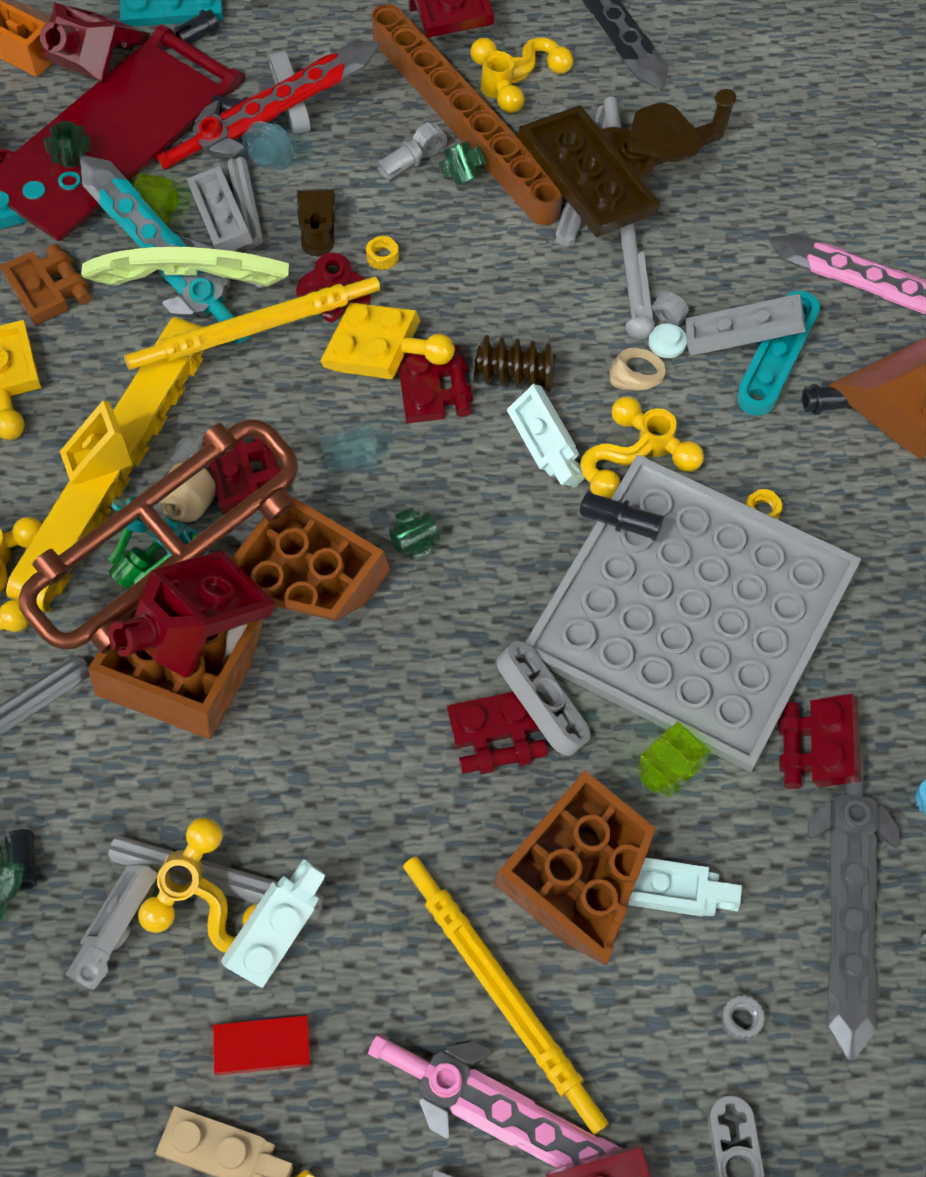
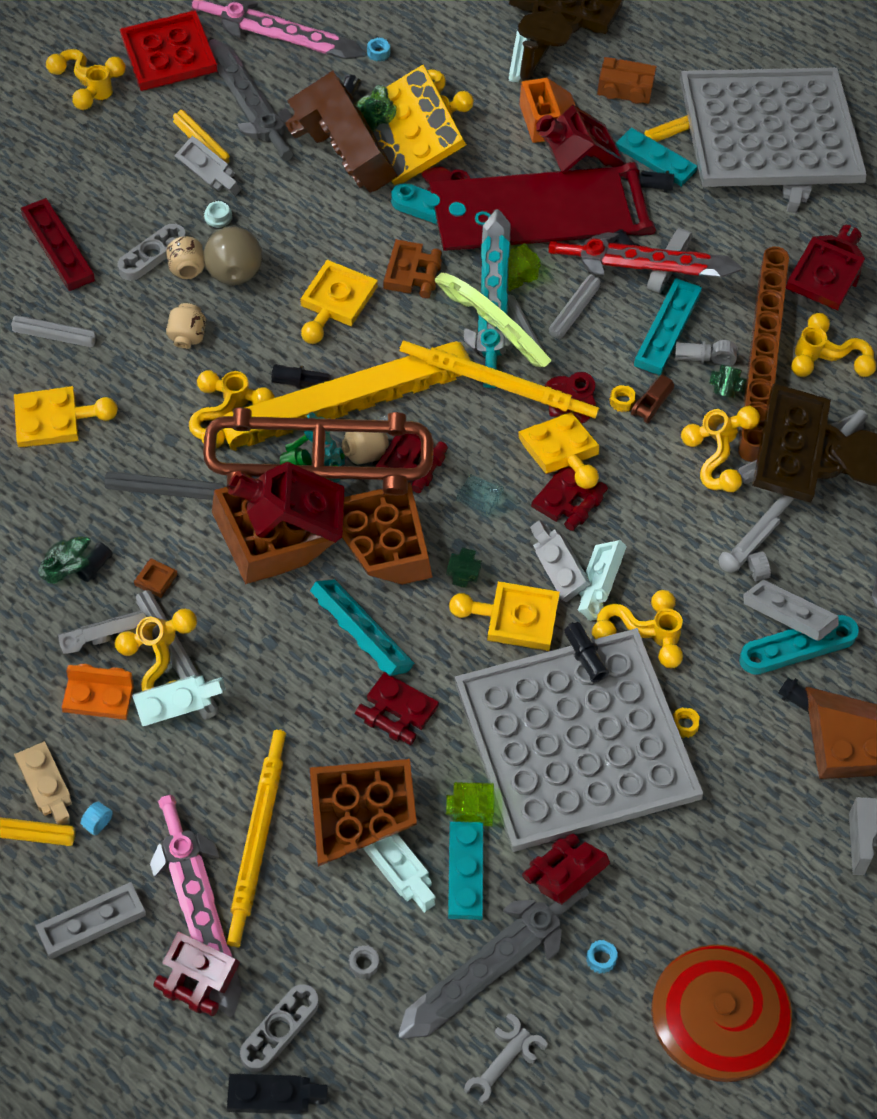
camera: 40 degrees right, 5 degrees down
(36, 483) = (297, 376): none -> black axle
(67, 144) = (500, 195): clear green gear -> none
(96, 447) = (339, 379): yellow slope -> none
(107, 816) = (155, 577): none -> dark orange tile
(175, 996) = (98, 691): none -> orange bracket
(219, 210) = (550, 300): light grey plate -> none
(261, 1045) = (114, 752): red tile -> none
(268, 145) = (620, 283): clear light blue plate -> none
(316, 220) = (603, 348): dark brown piece -> none
(321, 1136) = (96, 817): none -> medium azure axle
(352, 155) = (667, 326): none -> teal plate
(377, 679) = (362, 627): none -> teal plate
(410, 229) = (654, 397): none -> copper bar
(484, 236) = (693, 435): none -> yellow piece
(495, 453) = (559, 561): none -> light grey hinge
(509, 534) = (518, 616): none -> yellow plate
(514, 363) = (626, 522): dark brown piece -> none
(565, 732) = (428, 722): light grey beam -> none
(624, 378) = (689, 589): tan piece -> none
(667, 340) = (737, 583): light aqua plate -> none
(731, 832) = (465, 871): none -> teal plate

